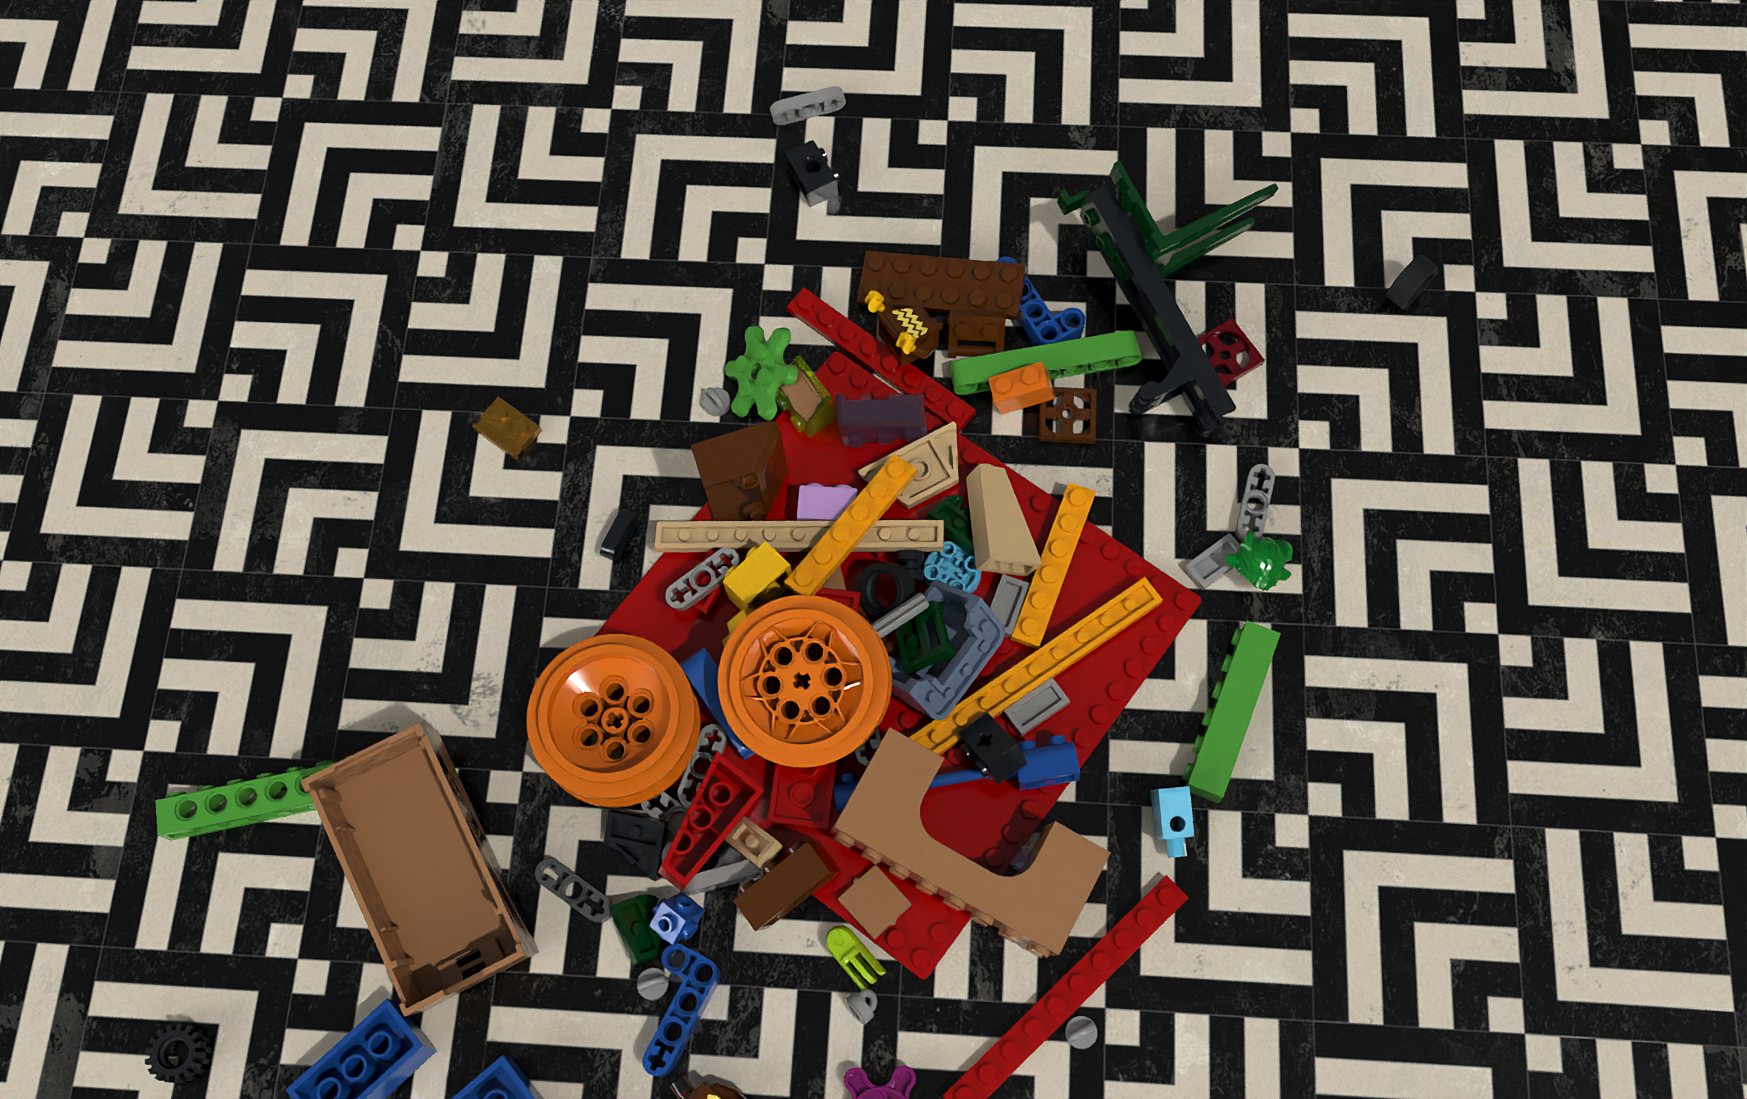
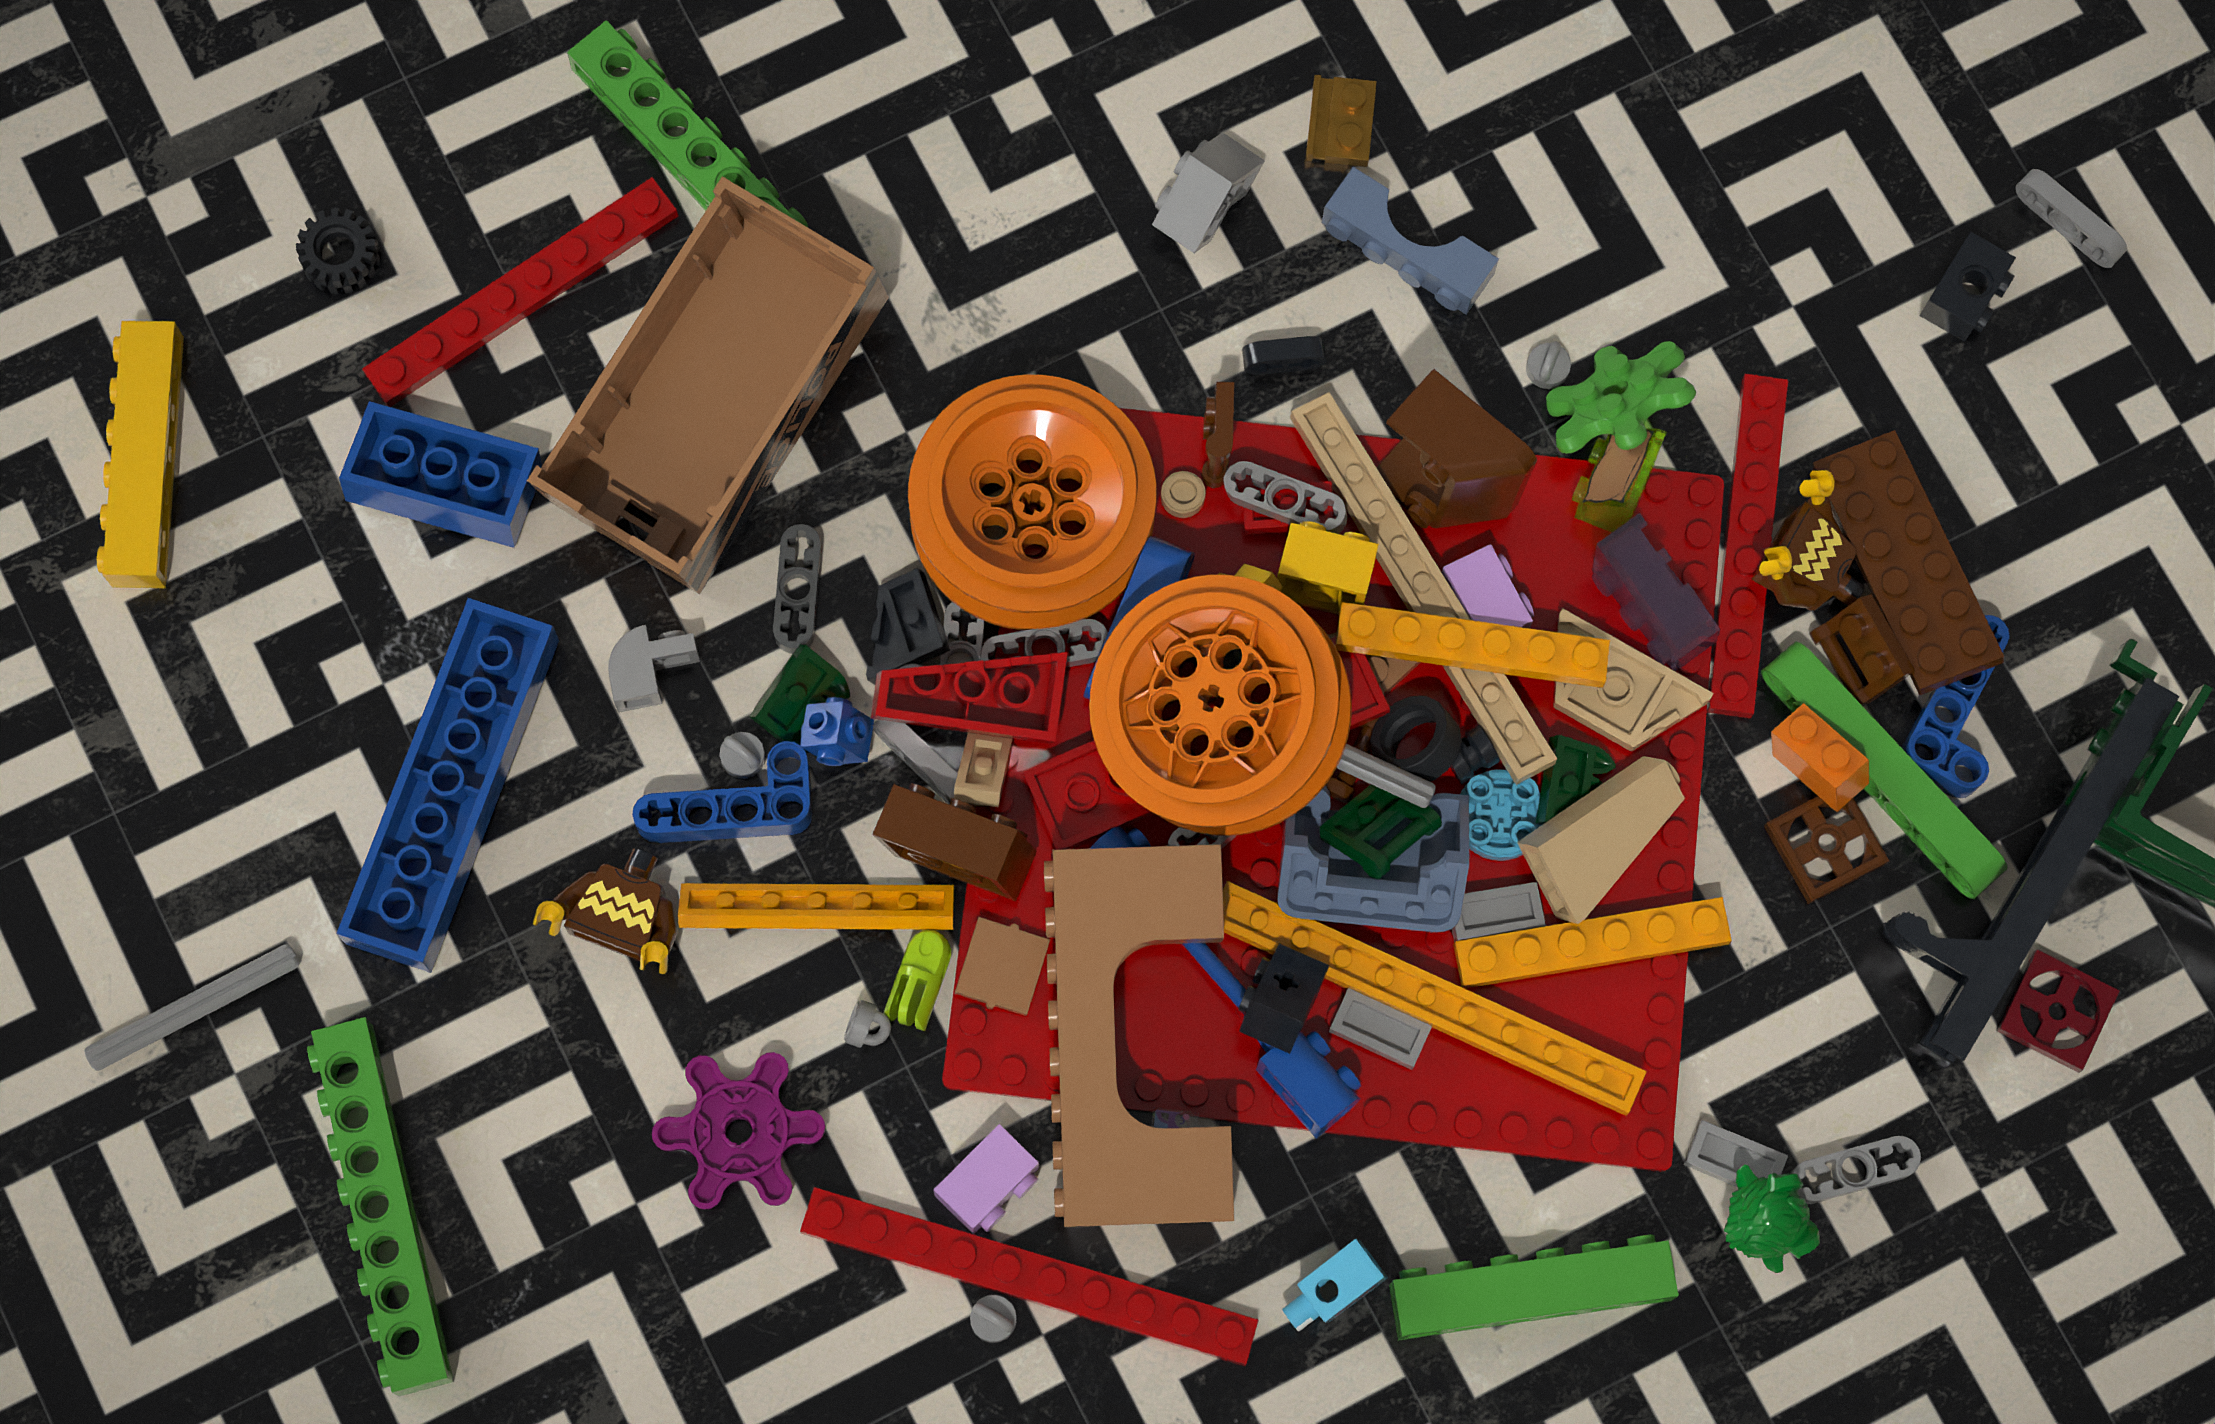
camera: 50 degrees right, 5 degrees up
(283, 956) = (520, 292): none -> red plate
(496, 516) = (1205, 189): none -> light grey brick
(556, 1016) = (635, 664): none -> light grey brick
(569, 447) = (1450, 271): none -> sand blue arch
(642, 591) = (1218, 433): none -> reddish brown plate
(662, 634) = (1183, 494): none -> tan tile
(772, 994) = (816, 906): none -> light orange plate
(997, 986) = (988, 1180): none -> lavender brick

